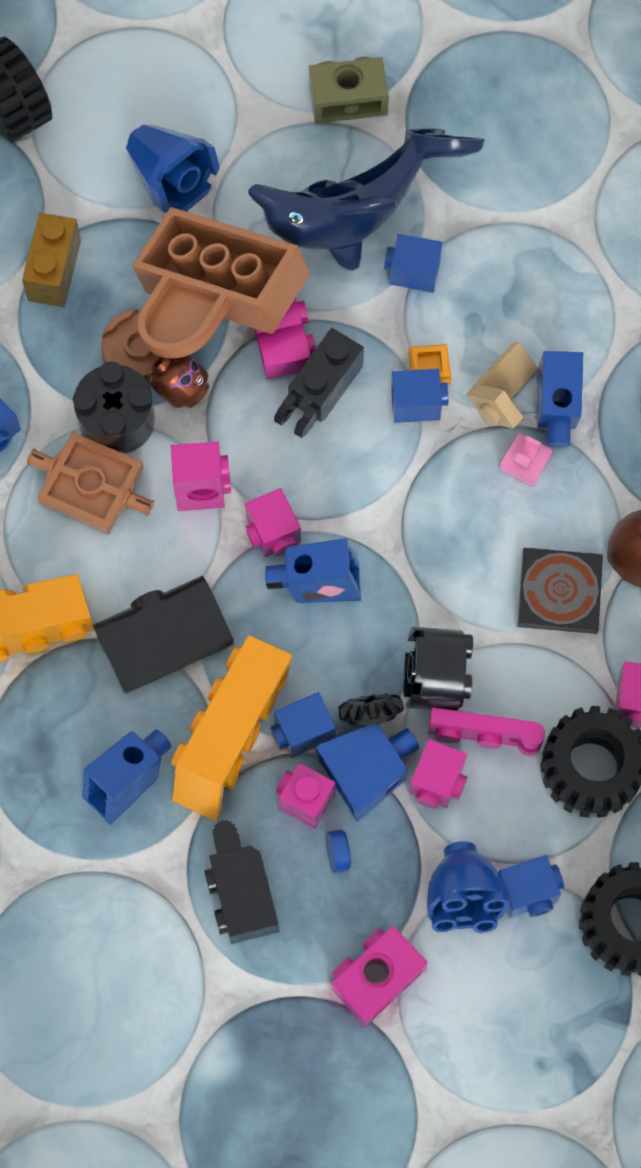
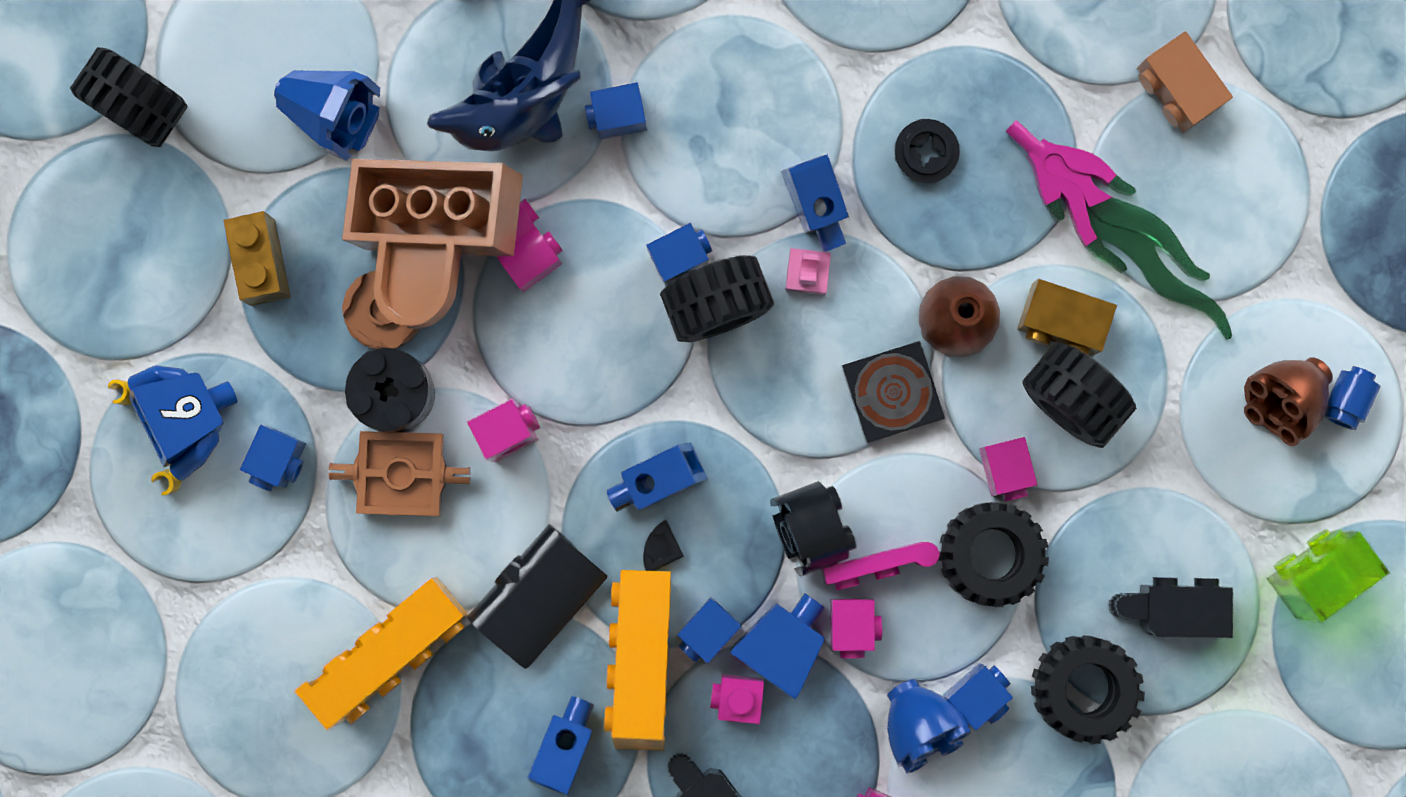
camera: 20 degrees left, 15 degrees up
(180, 380) = (443, 340): copper head -> none
(272, 523) = (594, 444): dark pink brick -> none
(294, 638) = (661, 548): none -> black tile
(322, 381) = (579, 278): black hinge -> none
(338, 851) = (790, 736): blue tile -> none
(371, 709) = (765, 591): black gear -> none
(431, 358) = (675, 210): light orange tile -> none
(435, 439) = (717, 298): none -> black tyre
(500, 384) = (752, 209): tan bracket -> none

